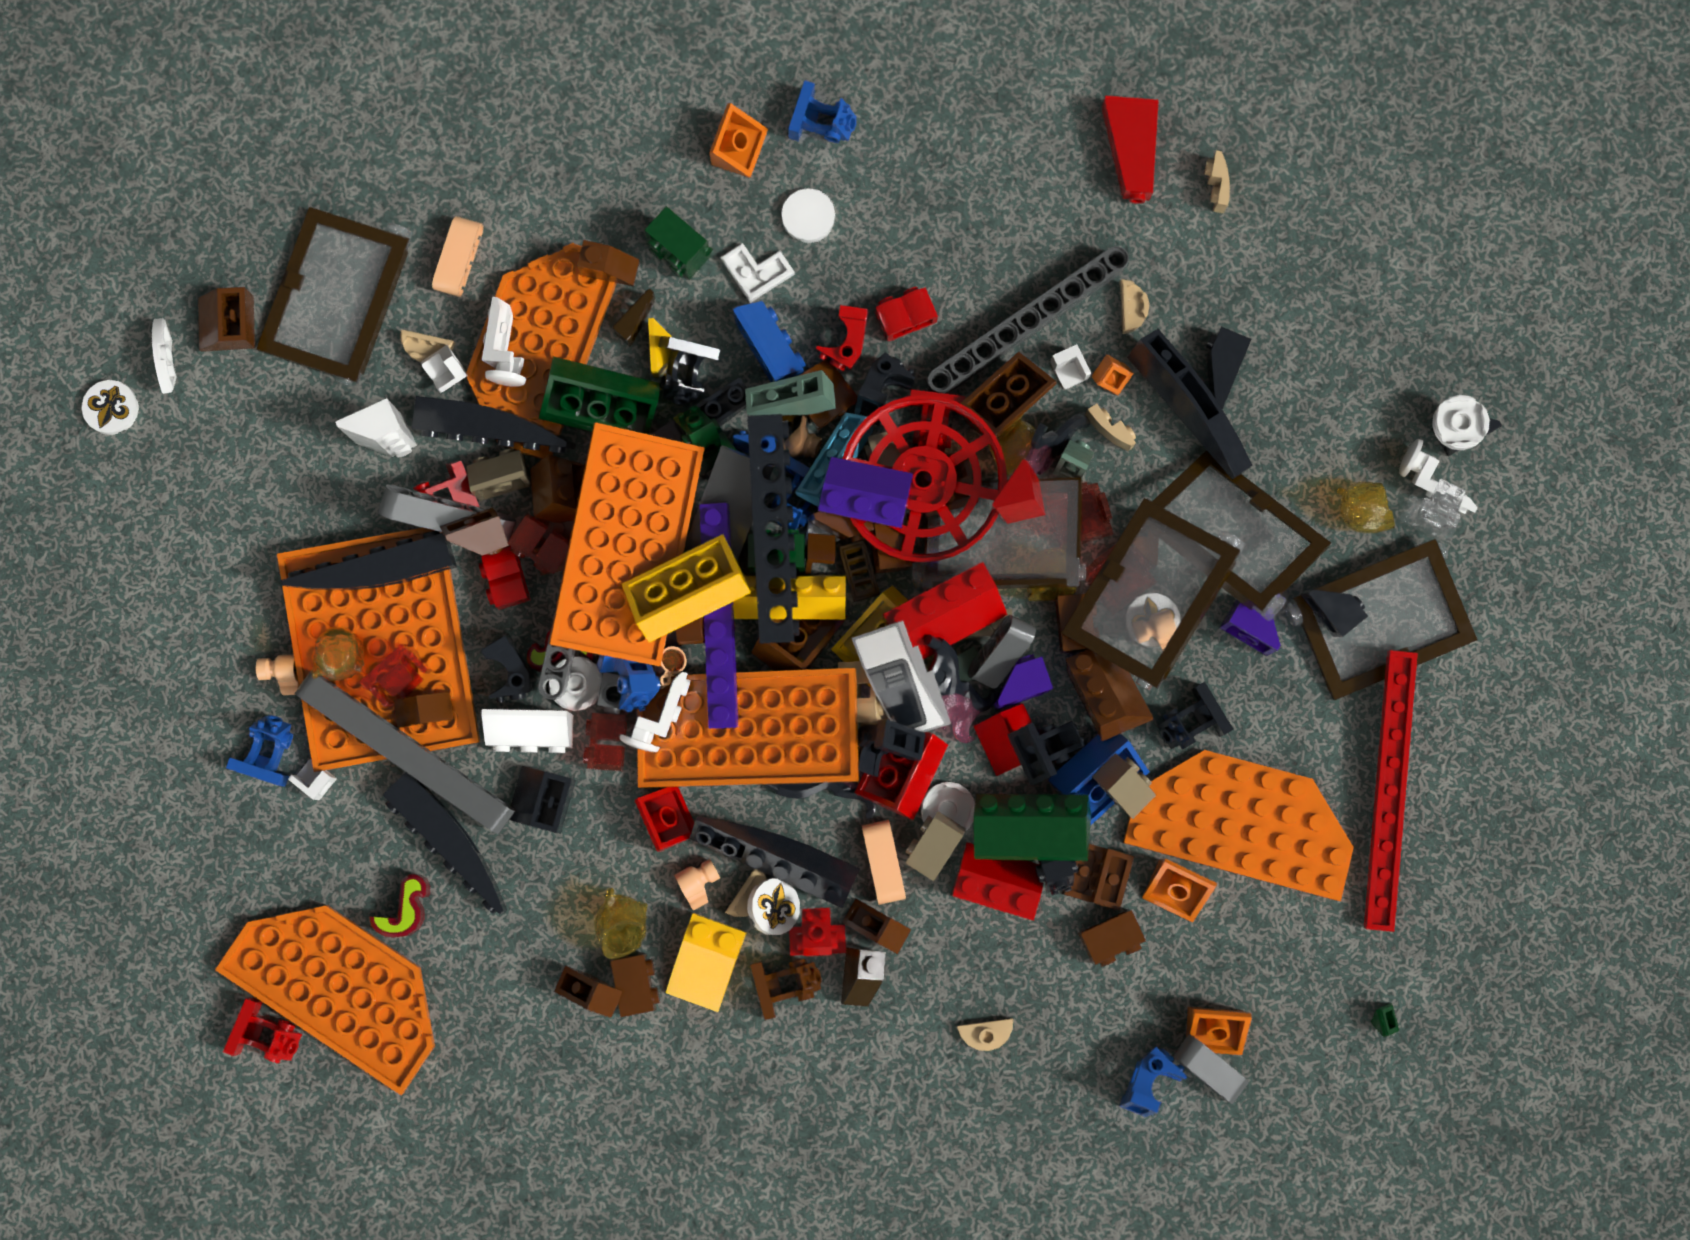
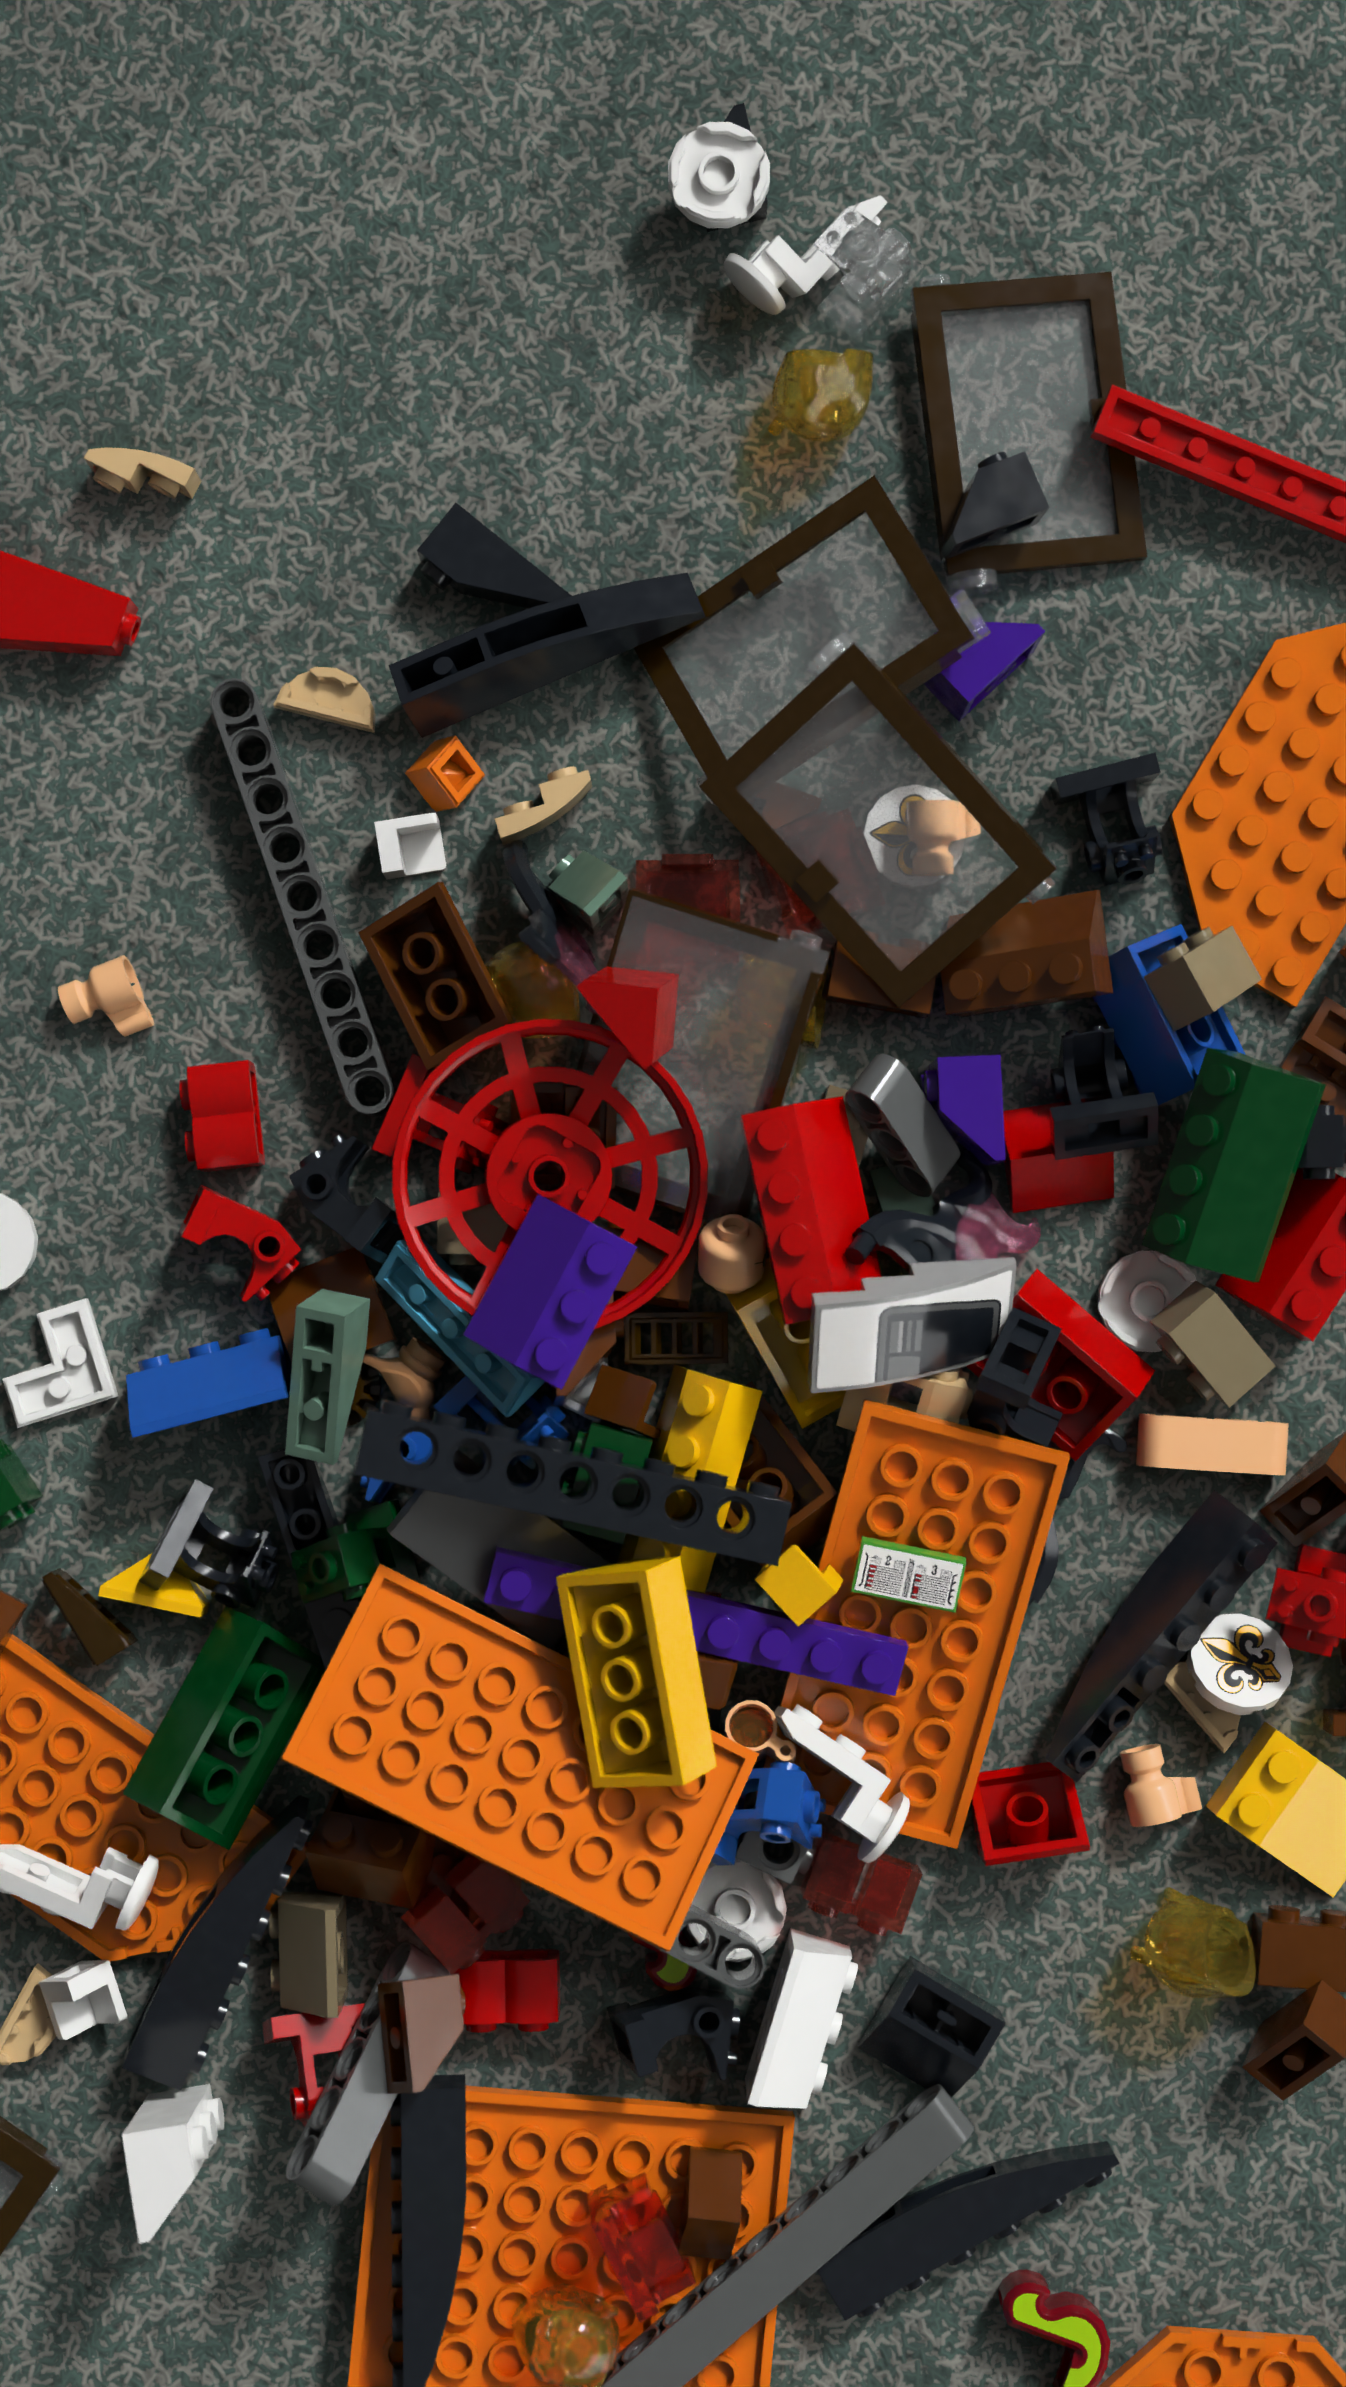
camera: 75 degrees left, 5 degrees up
(752, 660) = (798, 1584): none -> yellow panel
(773, 716) = (908, 1574): none -> tile
(910, 581) = (731, 1253): none -> light nougat head
(952, 240) = (110, 991): none -> light nougat piece

